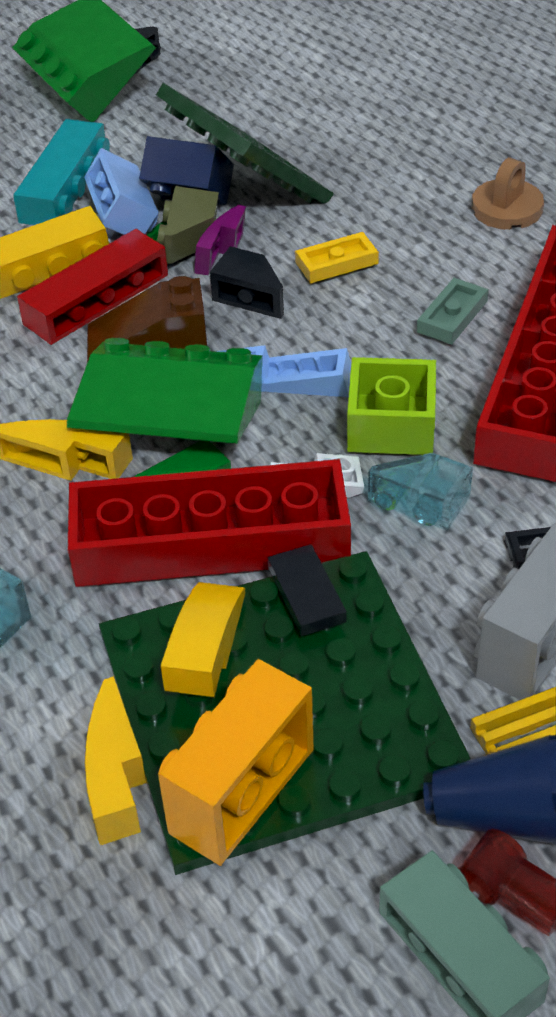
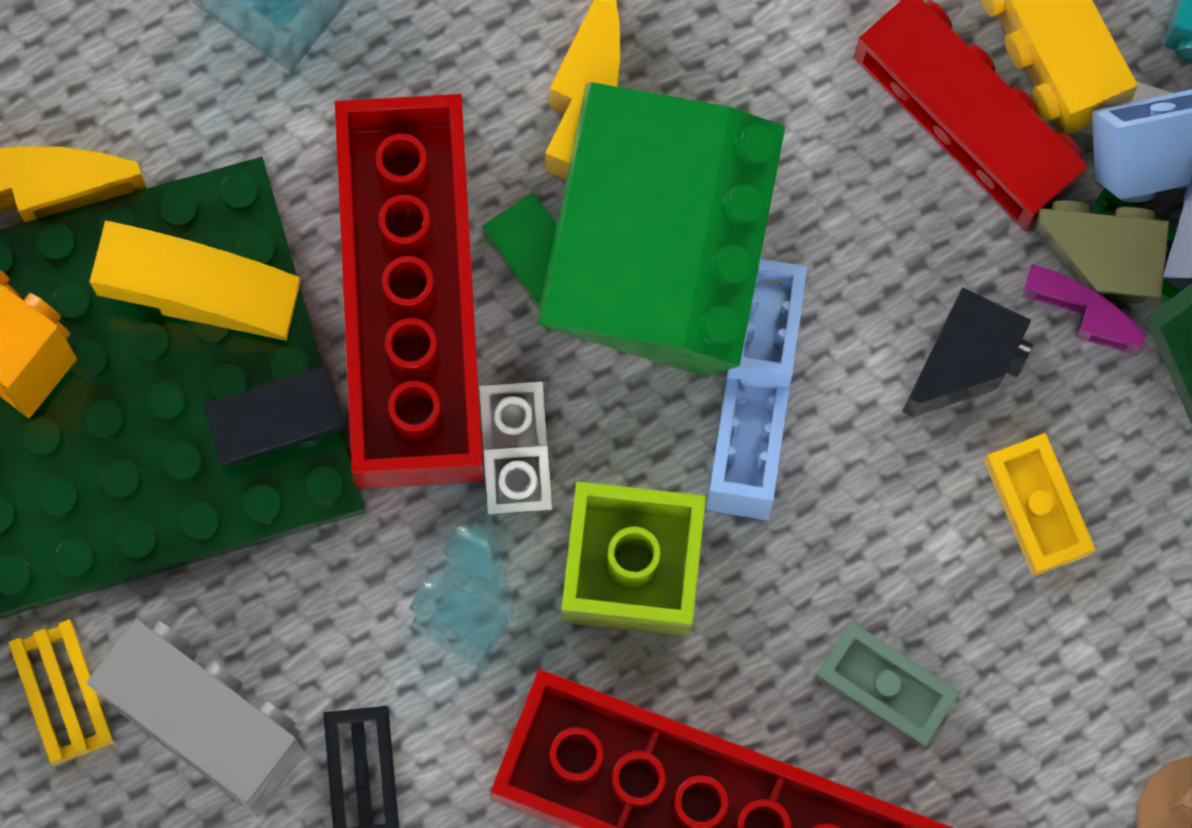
camera: 85 degrees right, 30 degrees up
(164, 313) = (850, 203): reddish brown slope -> none

